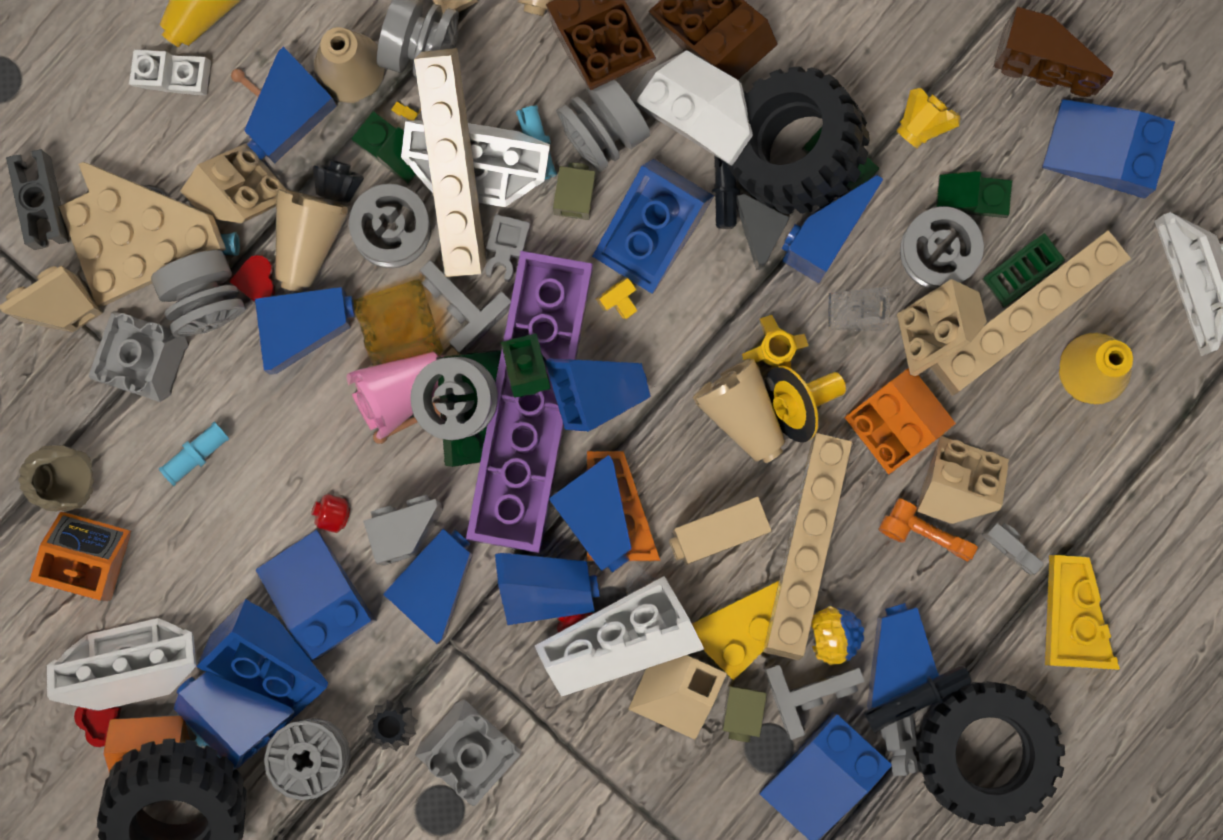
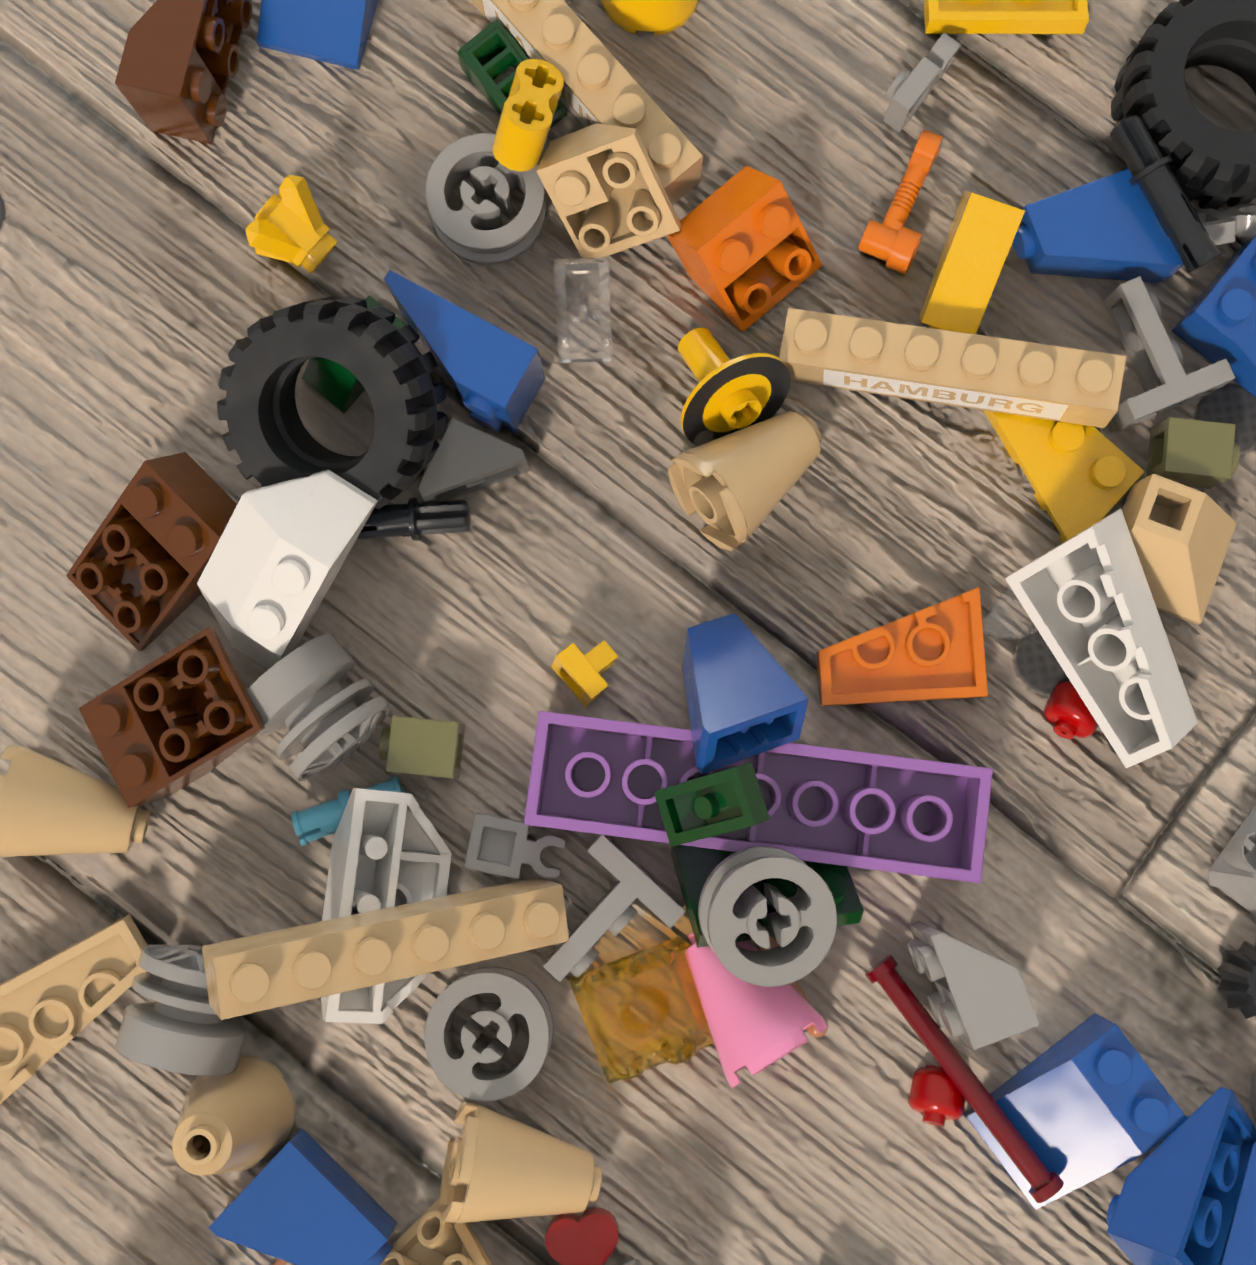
camera: 90 degrees left, 0 degrees up
(300, 324) = (652, 1168): blue slope -> none
(336, 181) = (422, 1123): black piece -> none
(342, 526) = (1042, 1182): none -> dark red bar
(384, 144) = (359, 1050): dark green slope -> none
(406, 112) = (307, 1019): yellow piece -> none
(432, 584) = (1043, 932): blue slope -> none
(543, 587) = (1038, 758): blue slope -> none
(596, 514) = (925, 685): blue slope -> none
(652, 225) = (470, 625): blue slope -> none
(719, 531) = (936, 496): tan brick -> none
(777, 345) = (645, 432): yellow rock -> none
(836, 635) = (1072, 318): yellow piece -> none
(881, 570) = (970, 263): none -> yellow slope
(962, 482) = (834, 152): tan slope -> none
(974, 194) = (402, 159): dark green slope -> none
(992, 275) = (527, 115): none -> yellow axle

